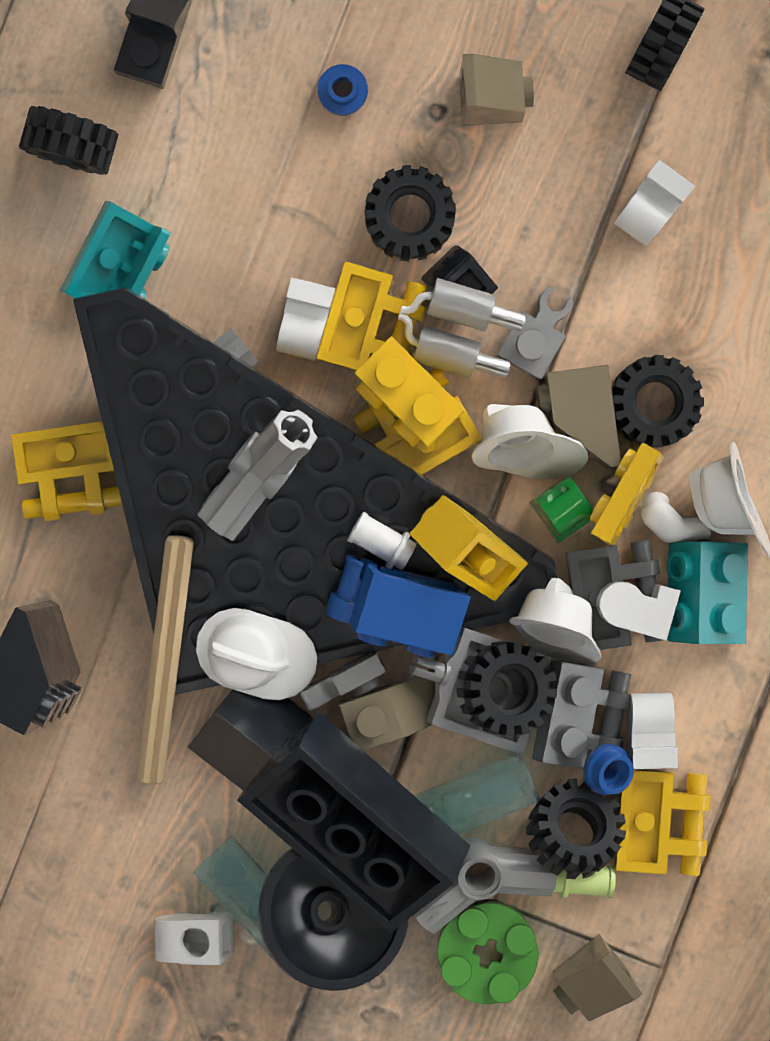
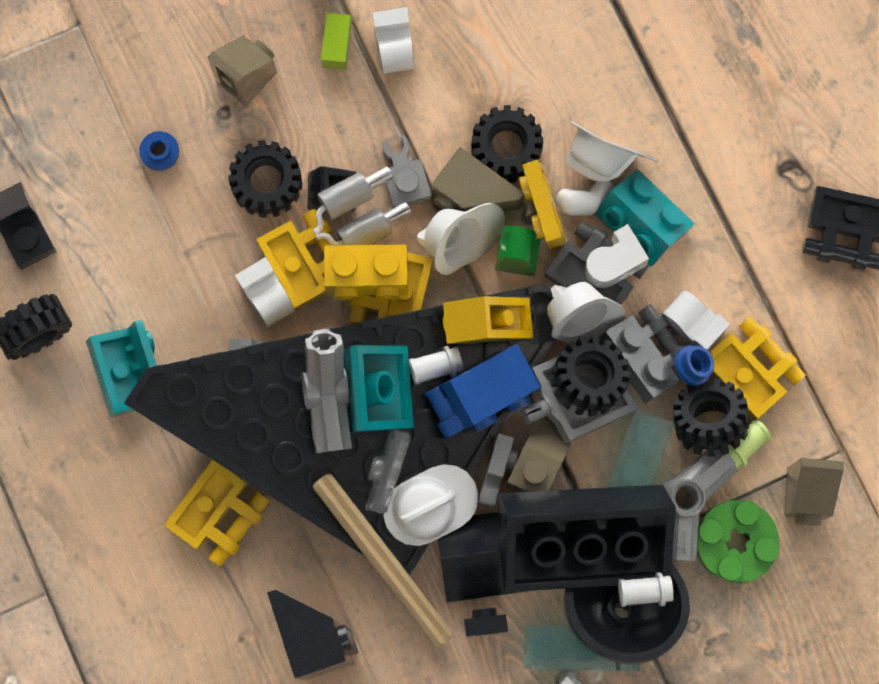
camera: 45 degrees left, 10 degrees down
(199, 801) = (485, 623): none -> black plate
(243, 590) = (386, 471): none -> clear plate
(309, 512) = (378, 388): none -> teal slope
(358, 922) = (646, 590): none -> white pin
(603, 149) = (336, 41): none -> lime piece

